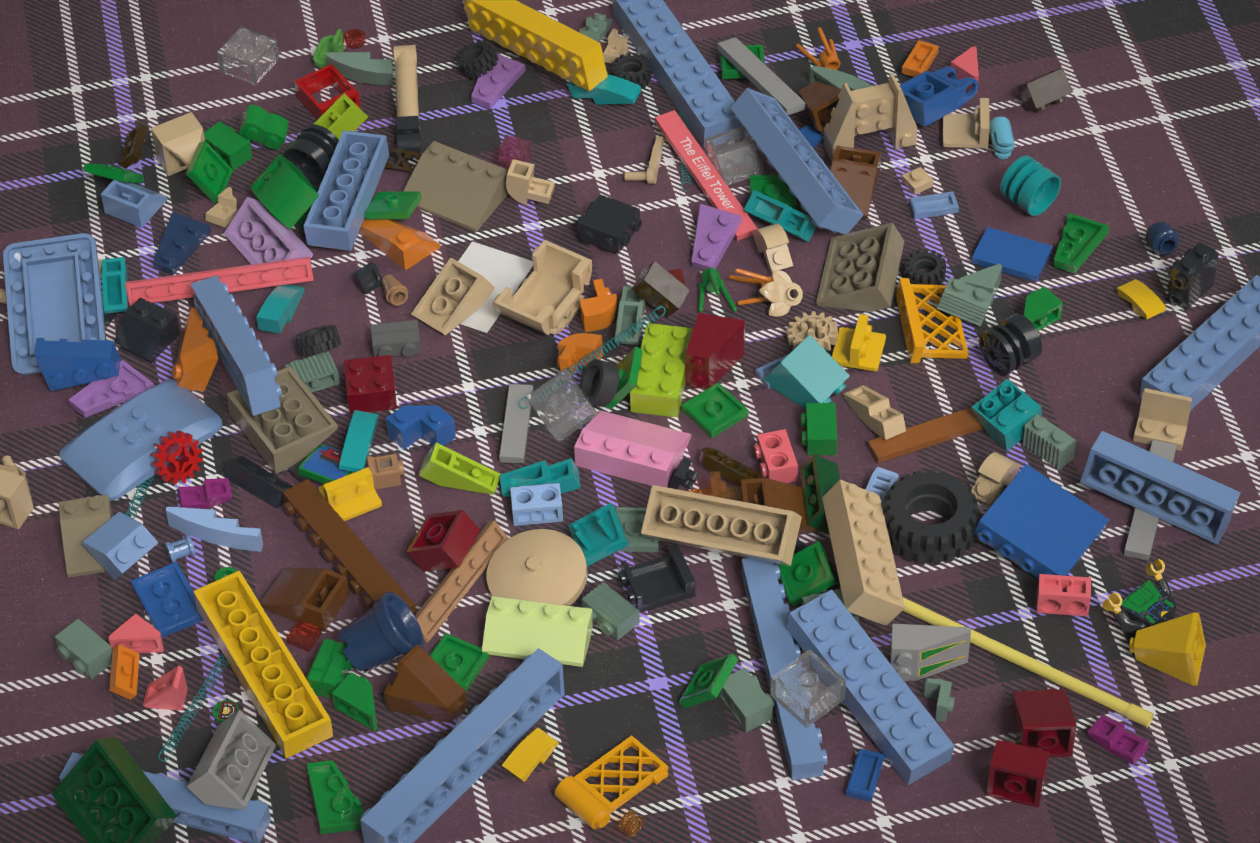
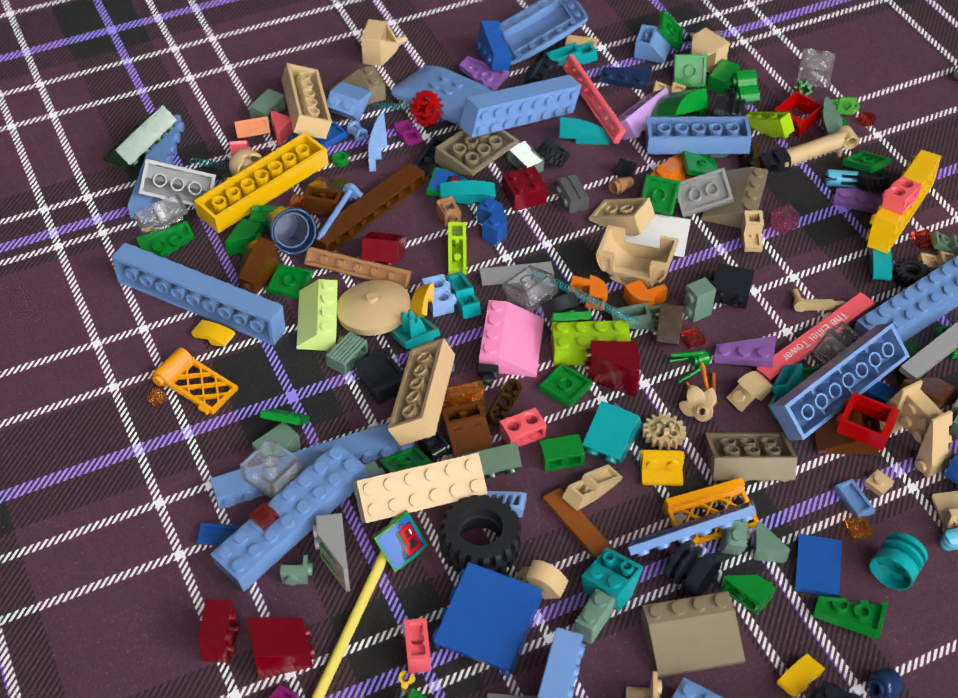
camera: 75 degrees right, 0 degrees up
(110, 589) = (306, 101): none -> tan brick
(215, 681) = (242, 159): none -> tan cylinder
(284, 78) = (807, 88): none -> green gear
(292, 786) = (161, 213): none -> clear brick
(324, 560) = (351, 192): none -> medium blue piece
(352, 494) = (420, 199): yellow bracket -> none
(432, 251) = (662, 193): none -> green tile
(441, 56) = (866, 161): none -> green tile
(450, 209) = (704, 192): none -> light grey plate
(457, 87) = (836, 178): none -> medium azure arm
(552, 515) = (421, 298): none -> yellow slope
(559, 24) = (900, 195): none -> coral brick
(628, 254) = (699, 299): none -> sand green brick
(869, 136) = (870, 408): none -> red window
(881, 699) = (264, 516): none -> clear red tile
(925, 260) = (774, 492): black tyre -> none
(928, 591) = (400, 541): none -> slope
(972, 324) = (701, 526): none -> medium blue plate
(975, 210) = (858, 528): none -> clear orange plate
(1081, 369) = (692, 634): none -> dark tan slope

